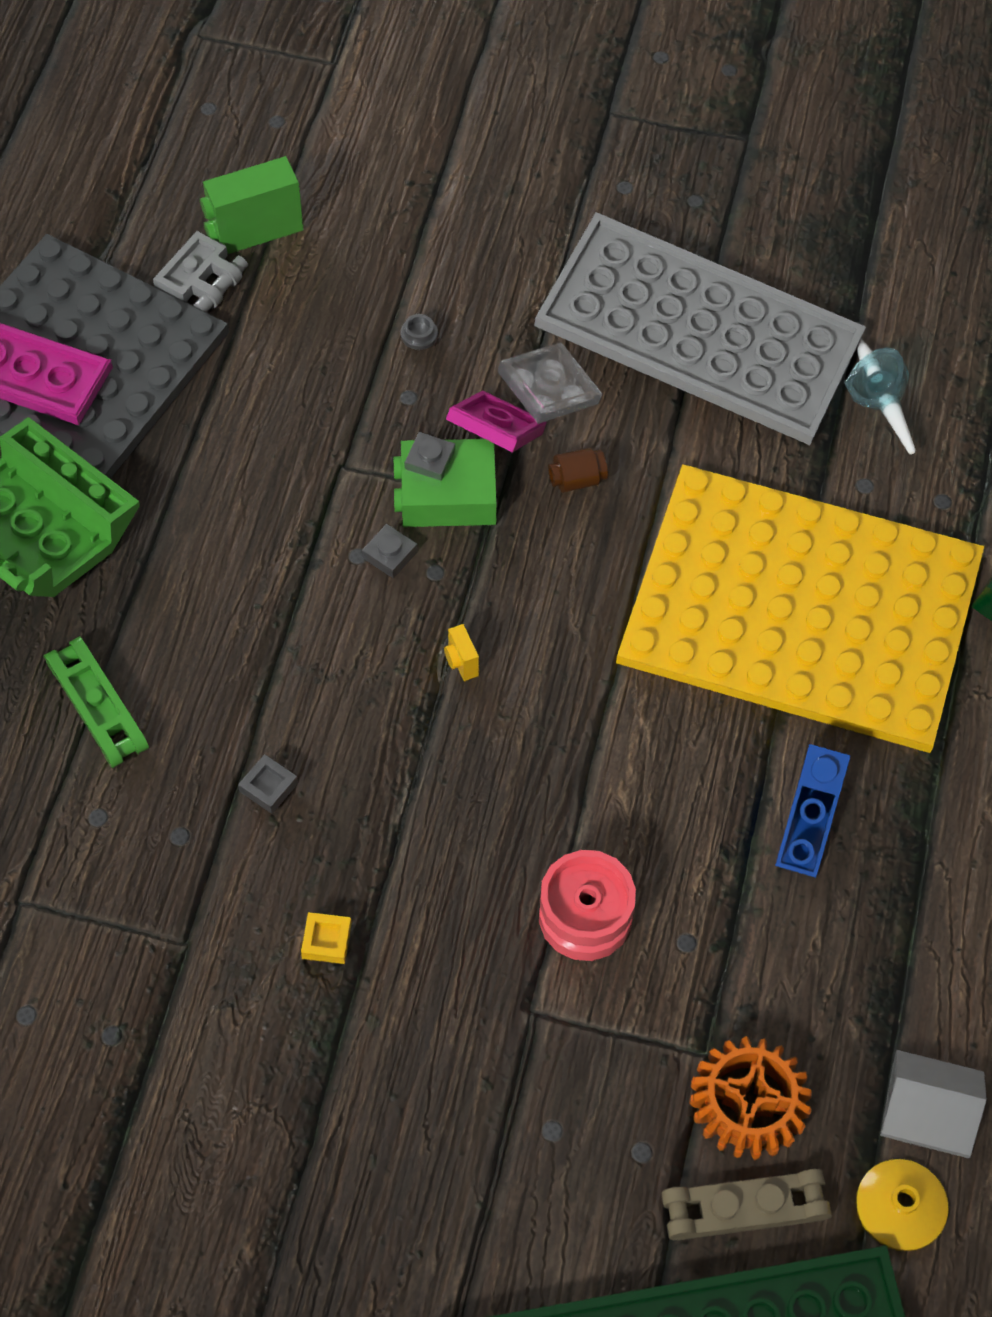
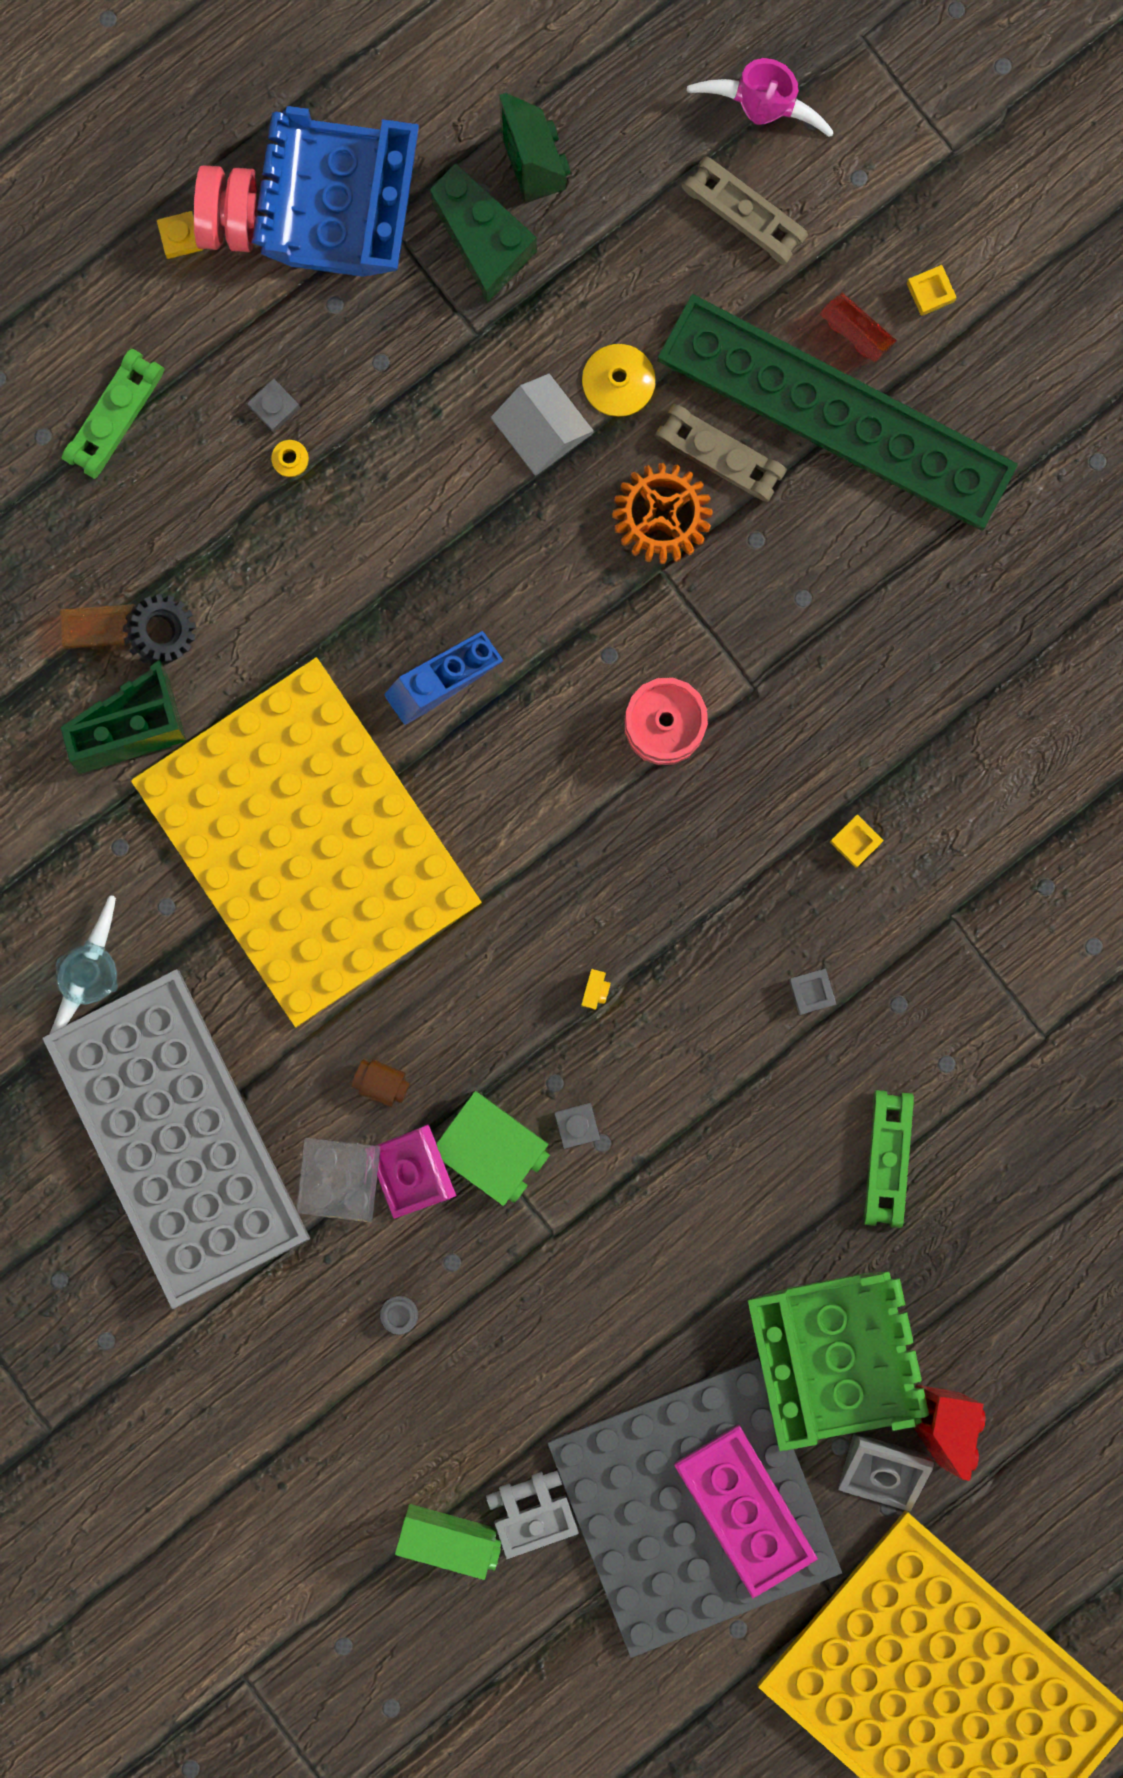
camera: 145 degrees left, 25 degrees up
(429, 456) = (494, 1171): flat silver plate -> none

